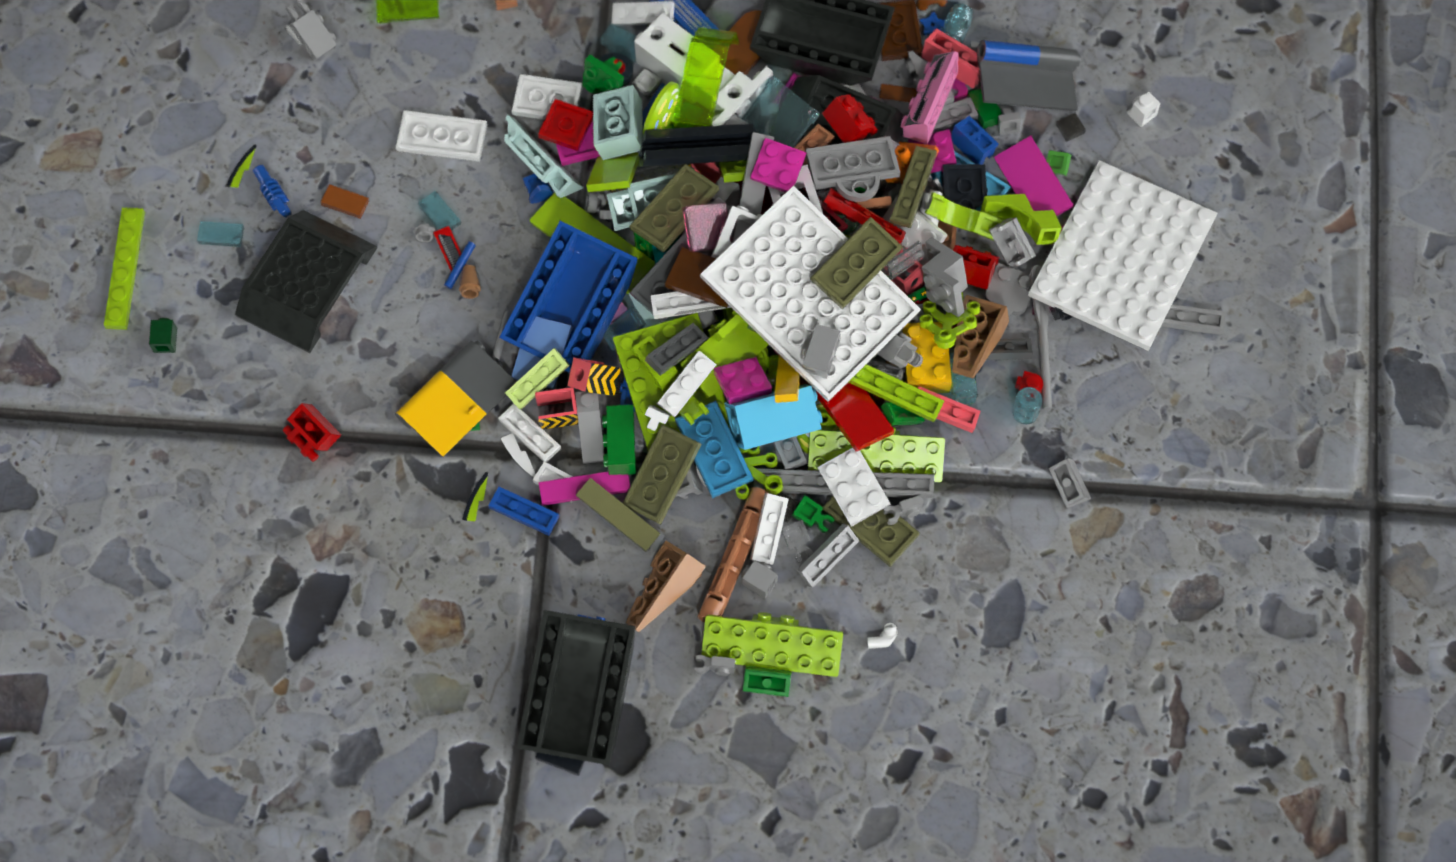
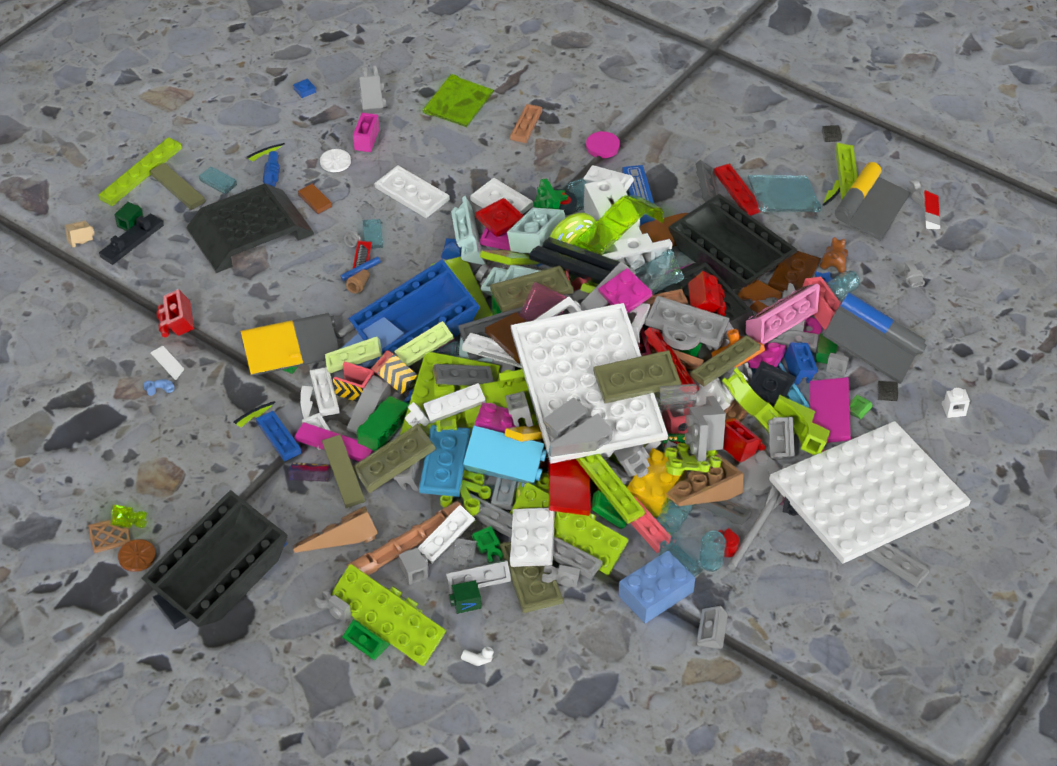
camera: 30 degrees right, 20 degrees down
(124, 386) = (79, 233): none -> tan brick
(181, 265) = (177, 186): none -> olive tile
(184, 360) = (131, 238): none -> black hinge
(223, 59) = (304, 88): none -> blue plate
(329, 139) = (335, 160): none -> white wheel
(341, 487) = (170, 364): none -> white sticker
(342, 87) = (366, 132): none -> dark pink brick
(359, 517) = (151, 386): none -> medium blue arm
(443, 690) = (125, 517): none -> clear neon green plate
(449, 701) = (109, 534): none -> medium nougat window
(483, 722) = (136, 555): none -> dark orange wheel
(583, 532) = (309, 472): none -> clear purple slope
(607, 331) = (424, 343): none -> yellowish green plate
(758, 357) = (518, 407): none -> light grey hinge
(831, 583) = (465, 597): none -> dark green brick
(853, 356) = (584, 438): none -> light grey slope
(882, 74) = (759, 291): none -> dark orange tile
(997, 471) = (656, 586): none -> medium blue brick
(998, 429) = (692, 566): none -> clear light blue hinge

